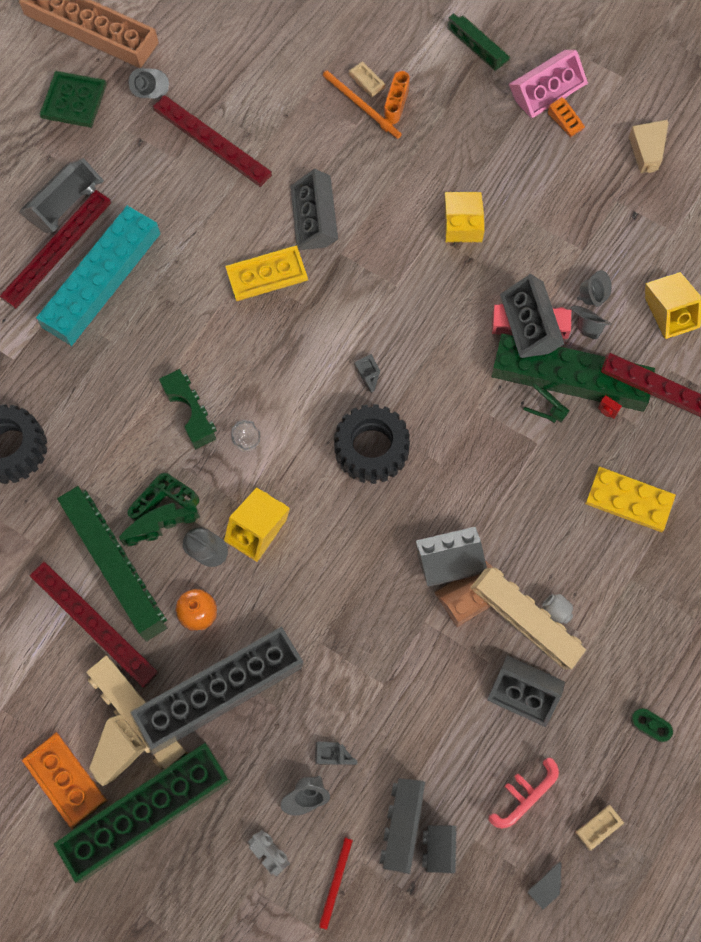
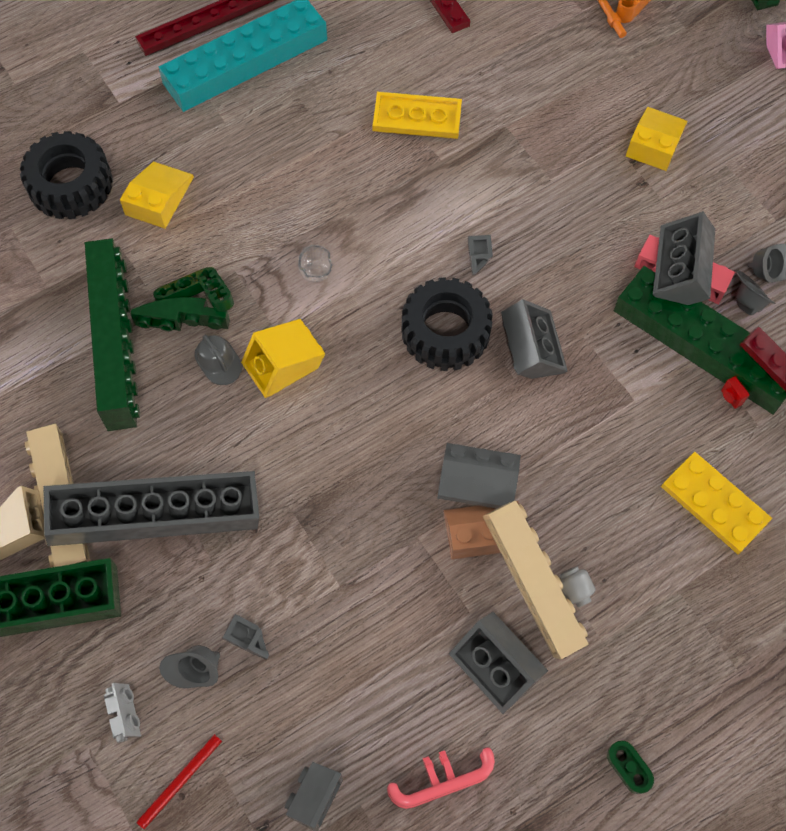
camera: 20 degrees right, 5 degrees down
(86, 427) = (155, 194): none -> yellow slope
(94, 624) = (62, 391): dark red plate -> none
(178, 390) = (269, 236): dark green arch -> none
(196, 610) = (175, 419): orange cylinder -> none
(314, 211) = (496, 73): dark grey slope -> none
(403, 826) = (285, 750): dark grey slope -> none
(442, 428) = (533, 340): none -> dark grey slope
(558, 411) = (673, 373): dark green plant -> none

